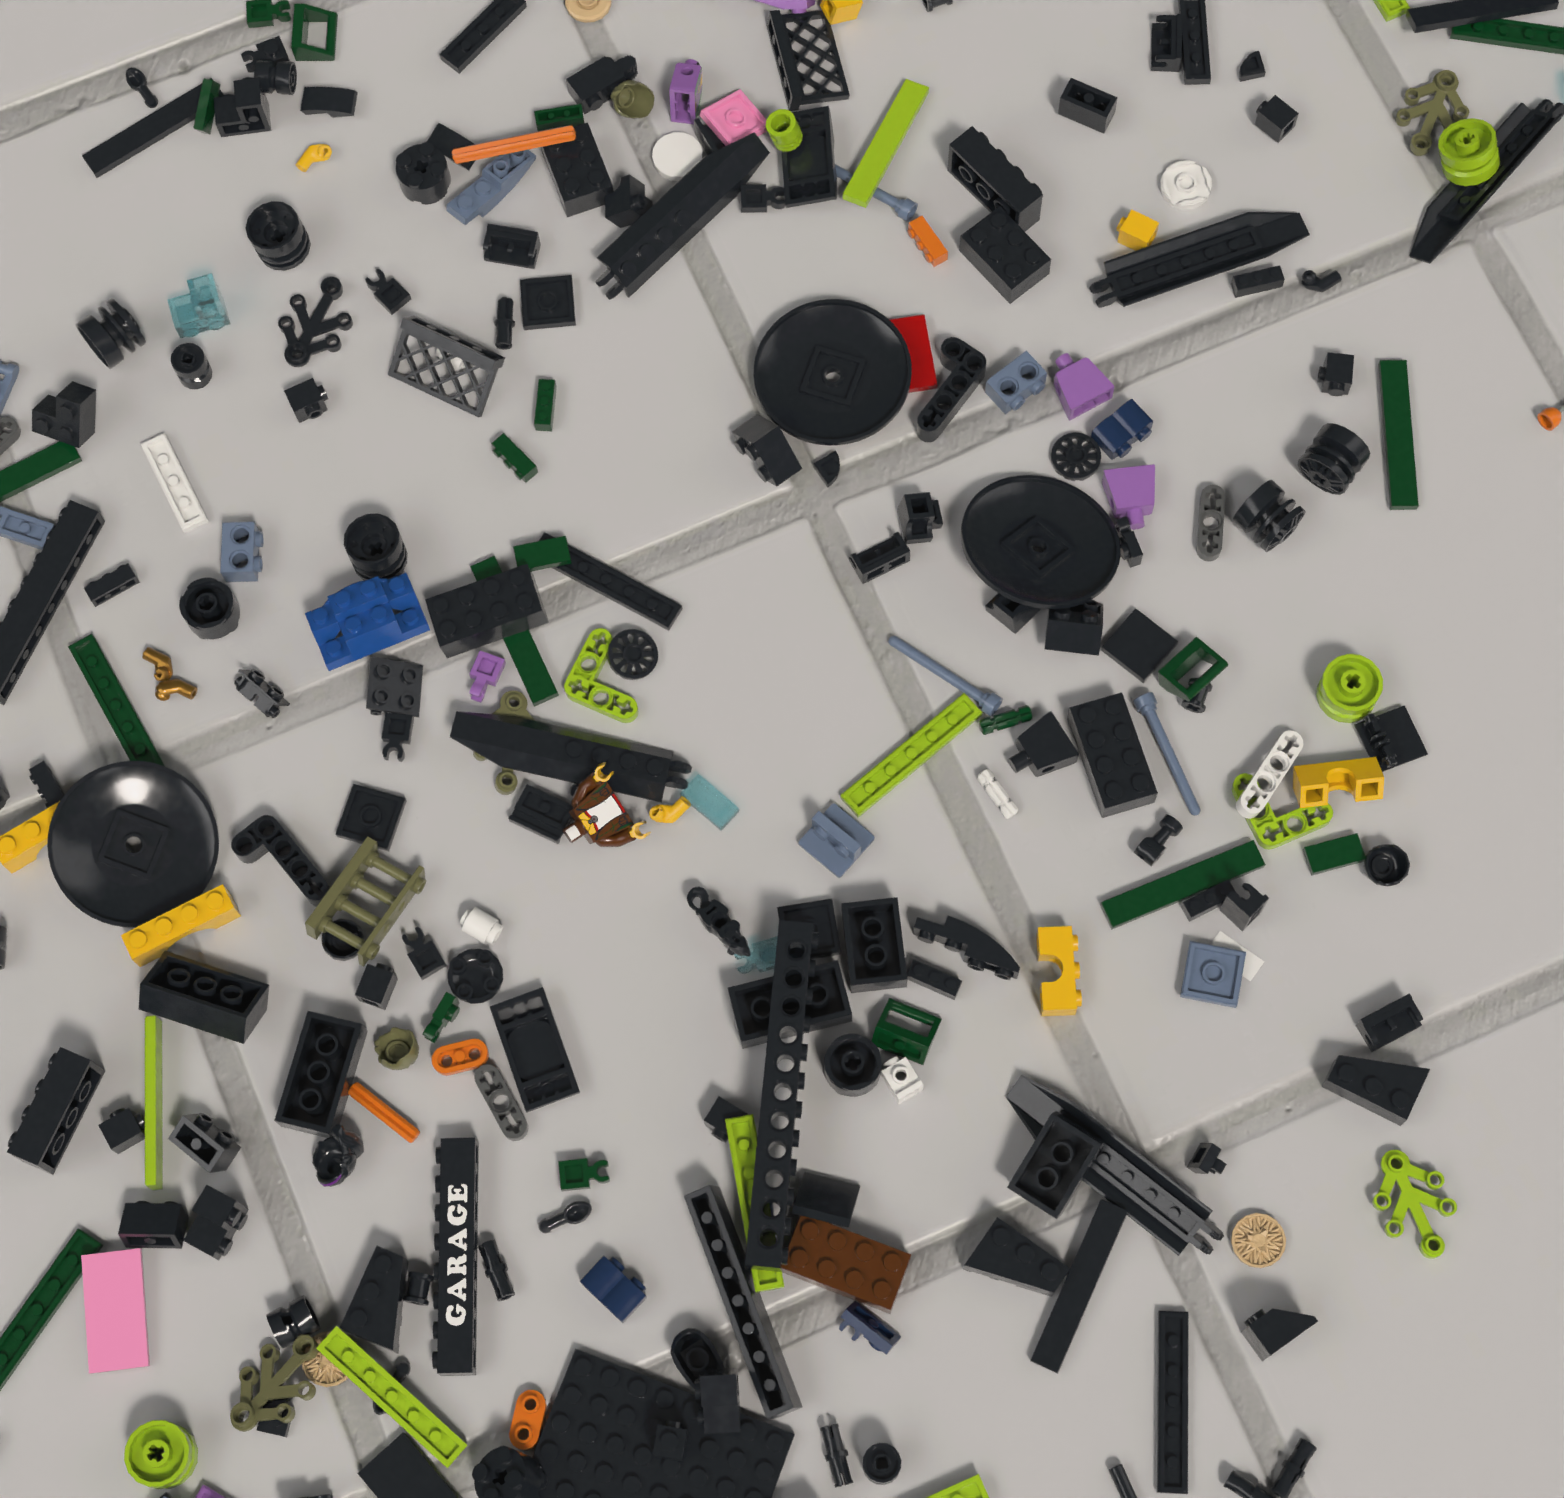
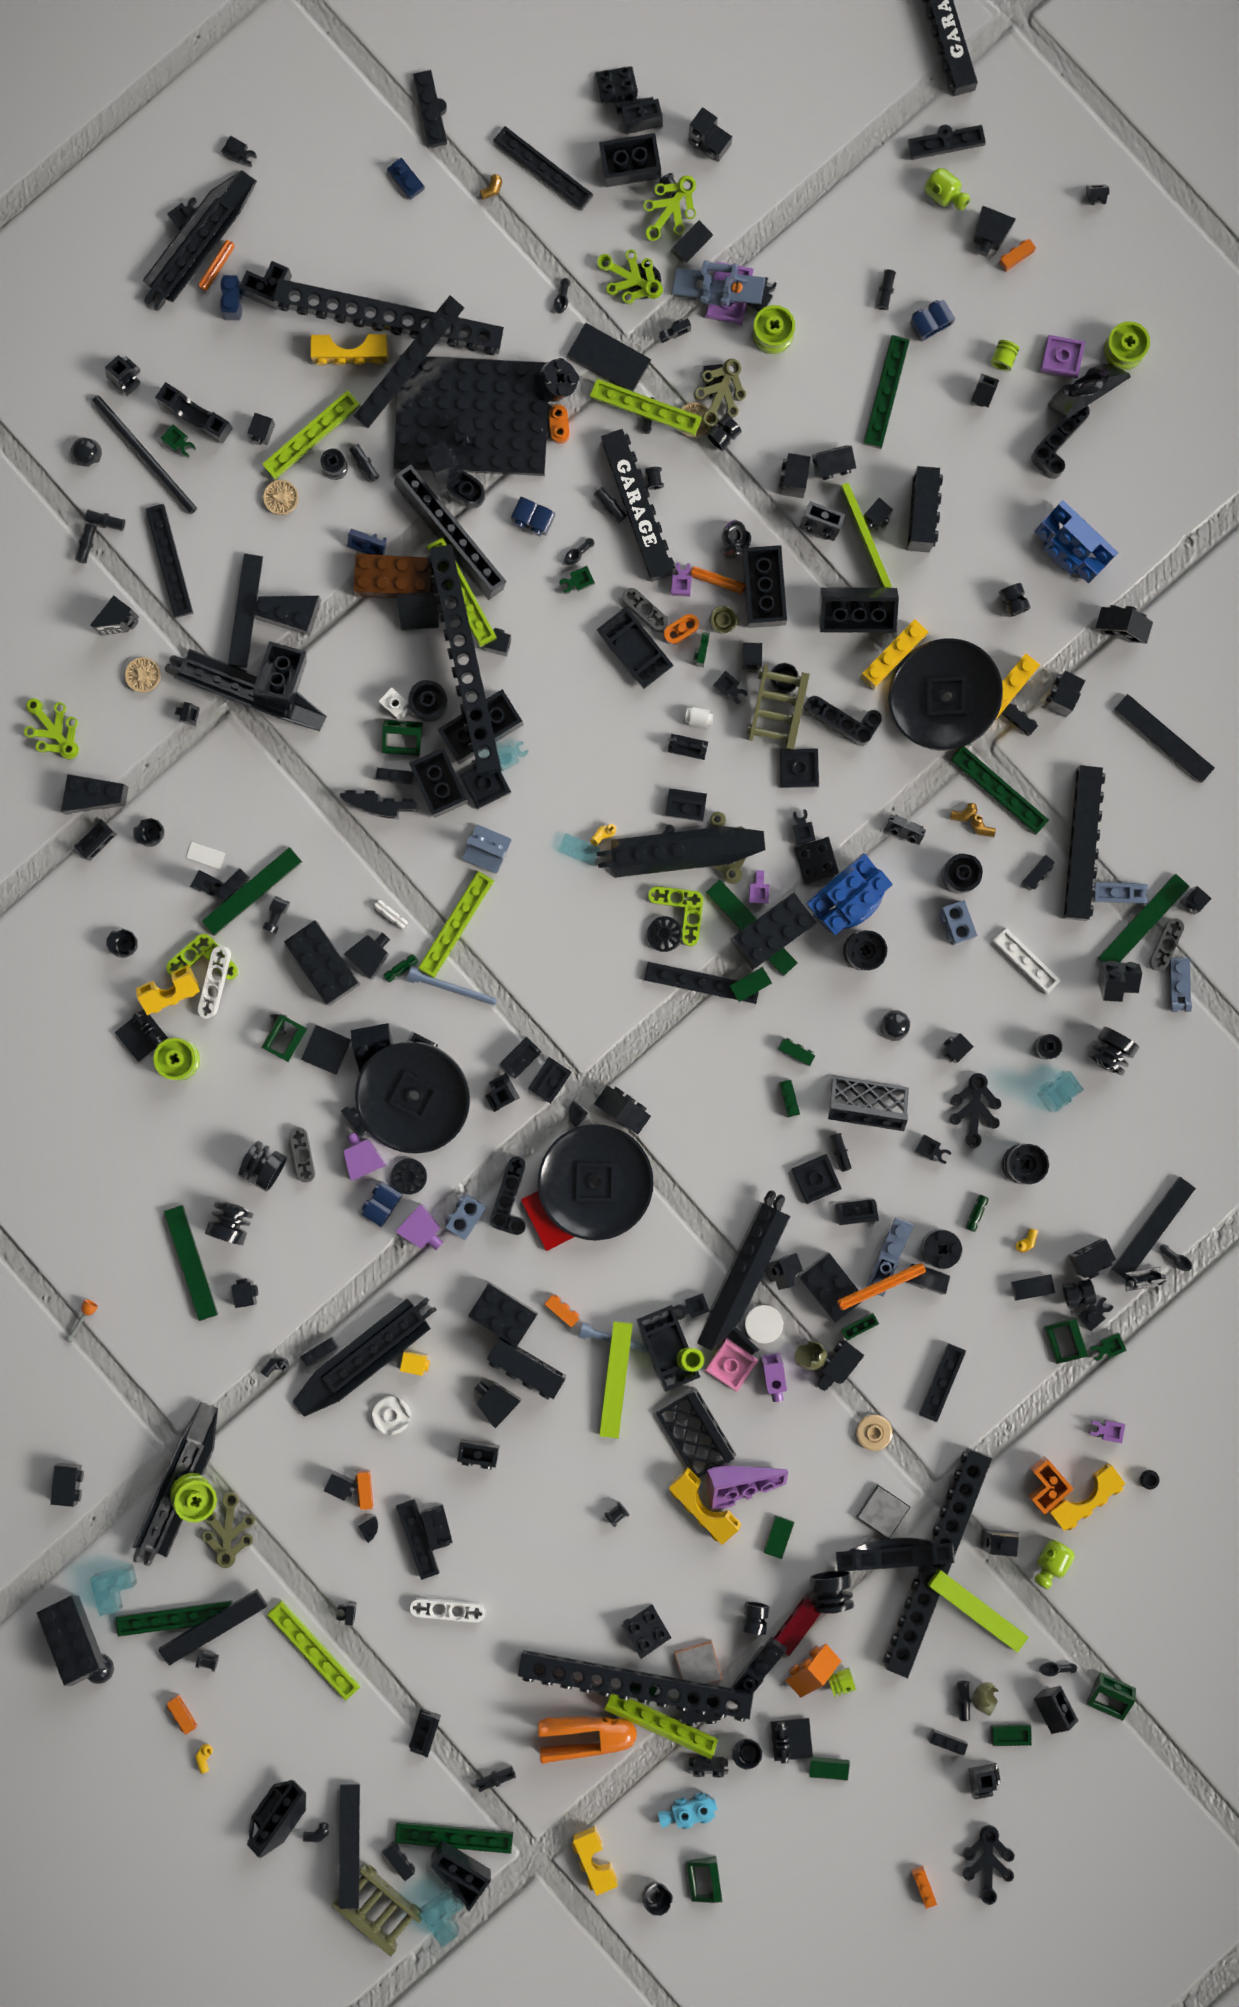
camera: 160 degrees right, 15 degrees up
(115, 1310) = (837, 405): bright pink tile -> none
(189, 73) = (1144, 1279): none -> black hinge
(205, 109) = (1119, 1252): dark green tile -> none
(362, 205) = (976, 1213): none -> dark green axle
(374, 453) = (895, 1025): none -> black hair
(378, 1301) = (674, 456): black wedge -> none
(436, 1121) = (681, 583): none -> medium lavender plate
(475, 976) = (691, 684): black dish -> none
(511, 892) = (687, 746): none -> black hinge
(600, 814) = (645, 812): torso -> none
(717, 921) = (545, 767): black animal -> none
(850, 517) = (549, 1080): none -> black plate
(977, 1443) = (281, 497): none -> tan wheel
(1045, 158) = (496, 1402): none -> black torso
(1058, 946) = (309, 790): yellow arch -> none
(1147, 706) = (308, 1006): sand blue piece -> none
(1213, 974) = (216, 836): sand blue plate -> none
(1245, 109) = (364, 1490): none -> orange piece
(1308, 1006) = (149, 832): none -> black hair
(1334, 854) = (158, 943): dark green tile -> none

